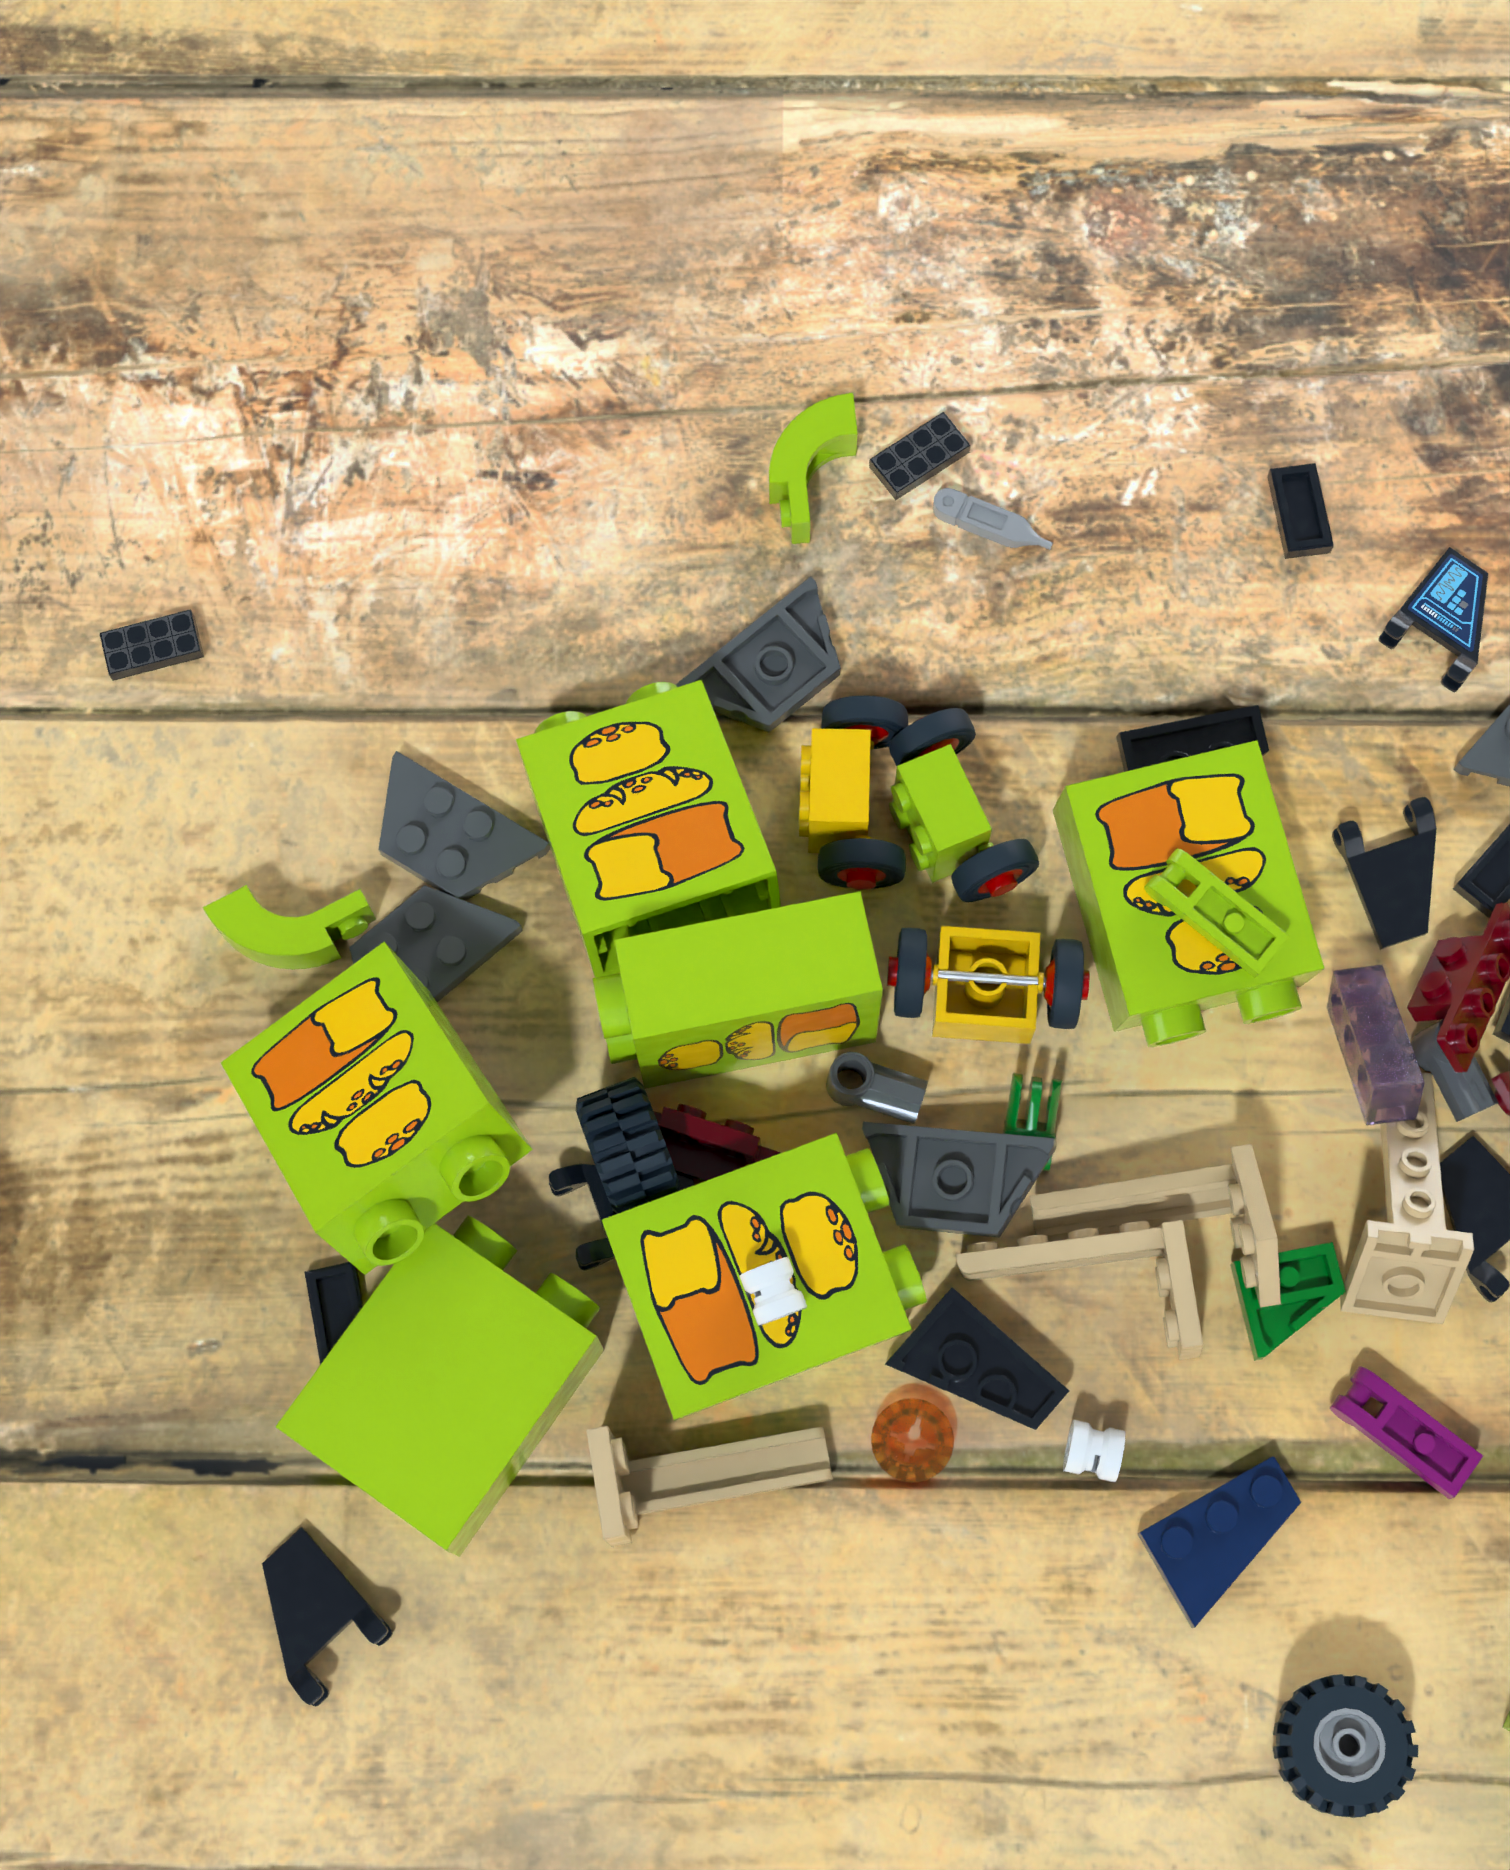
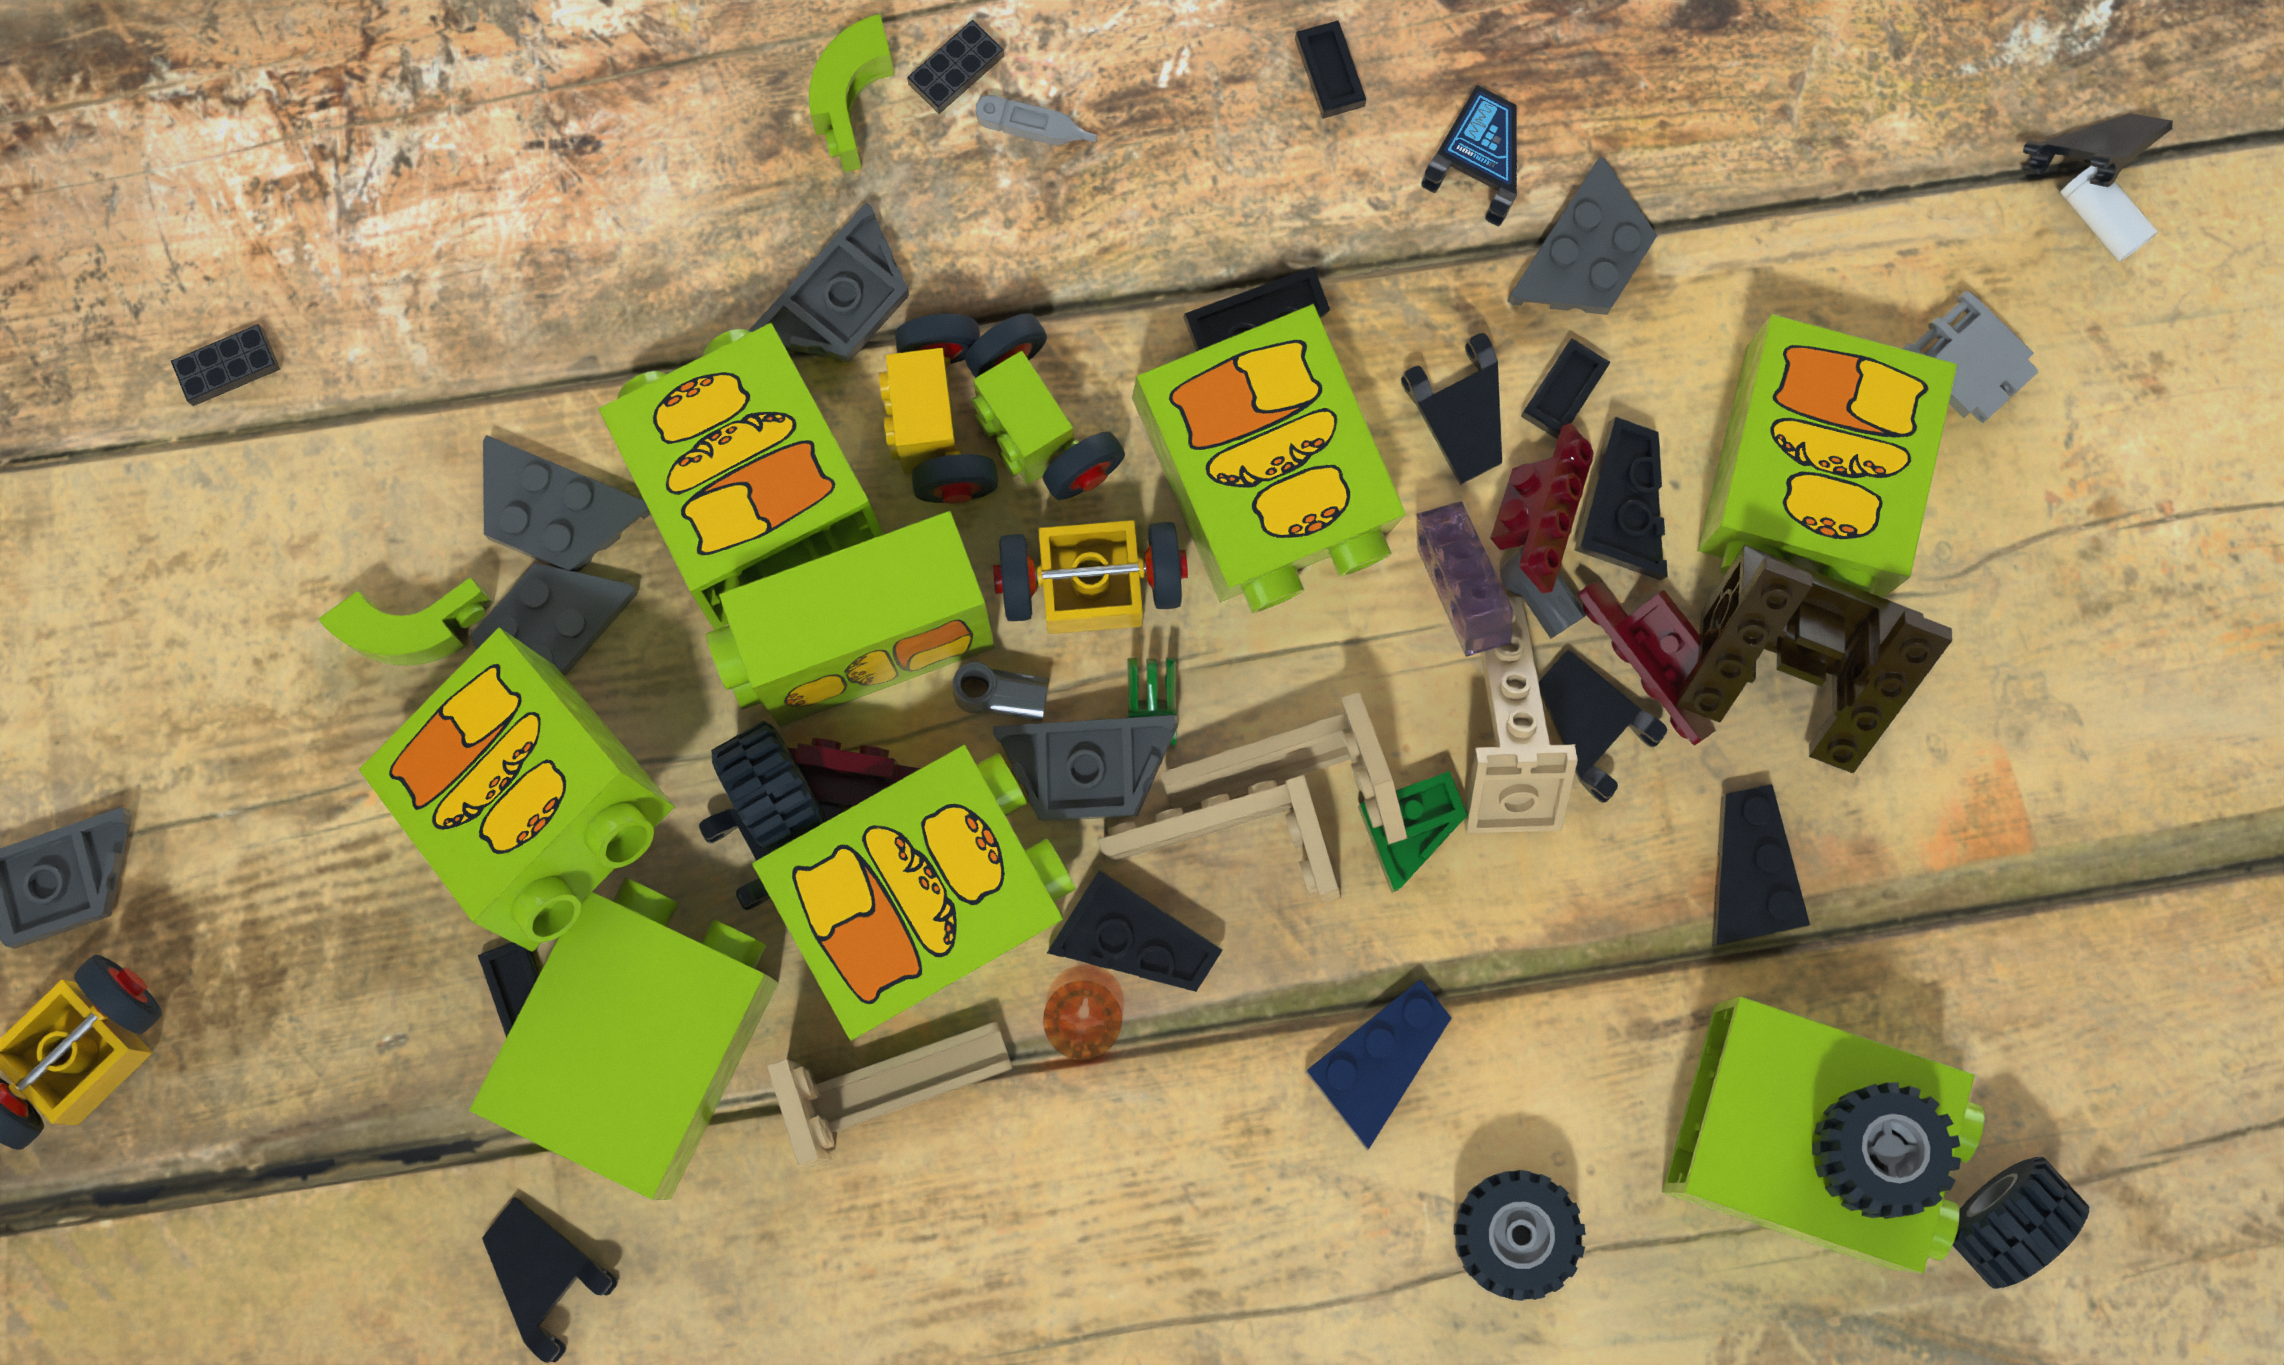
camera: 15 degrees left, 5 degrees up
(773, 1291) = (925, 905): white wheel -> none
(1094, 1451) = (1253, 1002): white wheel -> none
(1218, 913) = (1297, 477): lime plate -> none
(1407, 1433) = (1541, 937): magenta plate -> none

